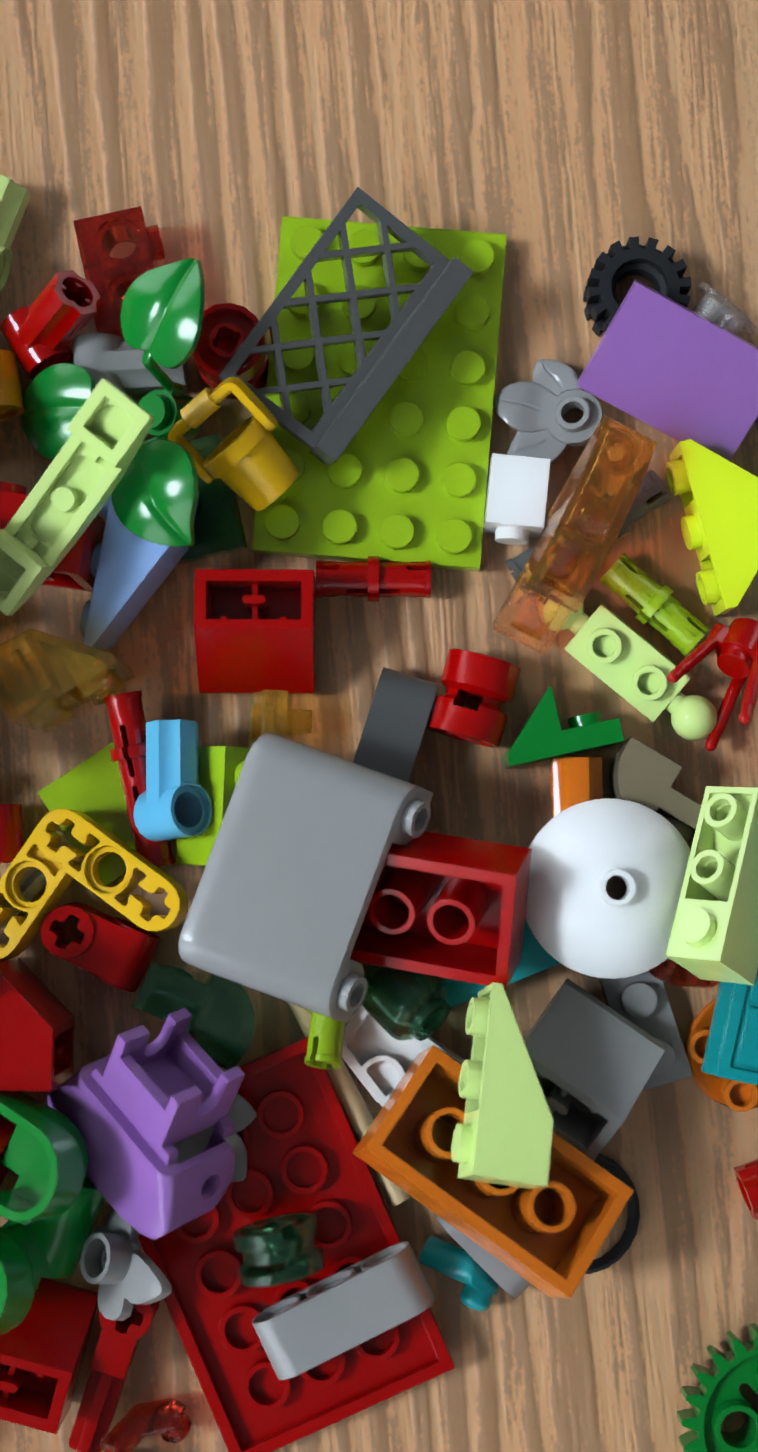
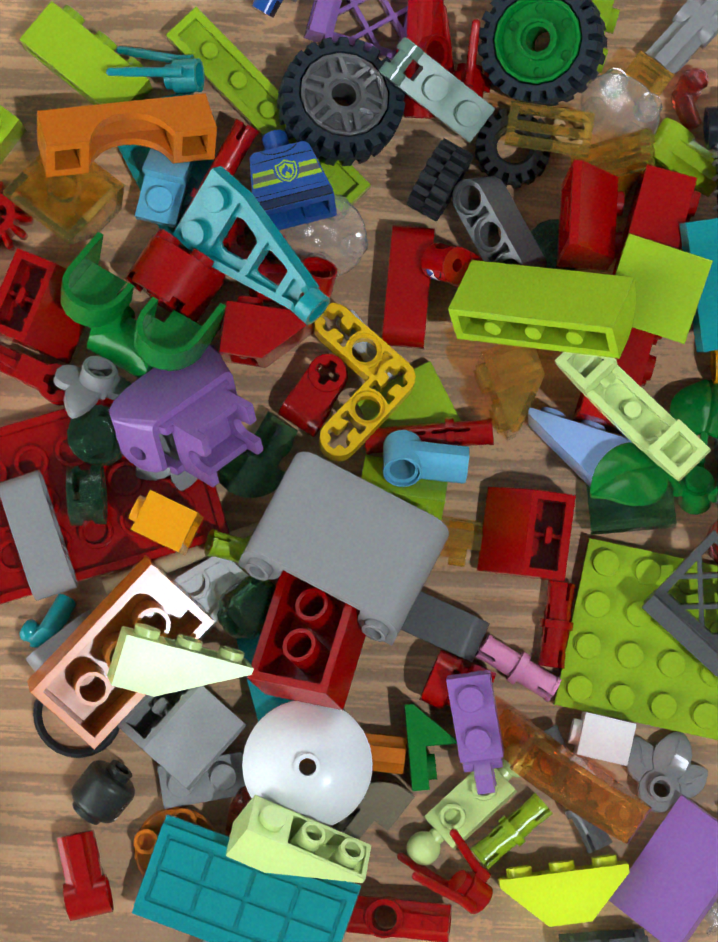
camera: 100 degrees right, 0 degrees up
(198, 1251) = (94, 437): none -> clear green wheel
(249, 457) = (655, 543): yellow piece -> none
(302, 1134) = (165, 521): none -> light orange brick
(437, 621) = (518, 668): none -> bright pink pin
(526, 663) = (476, 726): none -> medium lavender hinge
(683, 1164) = (103, 792): none -> pearl dark grey head

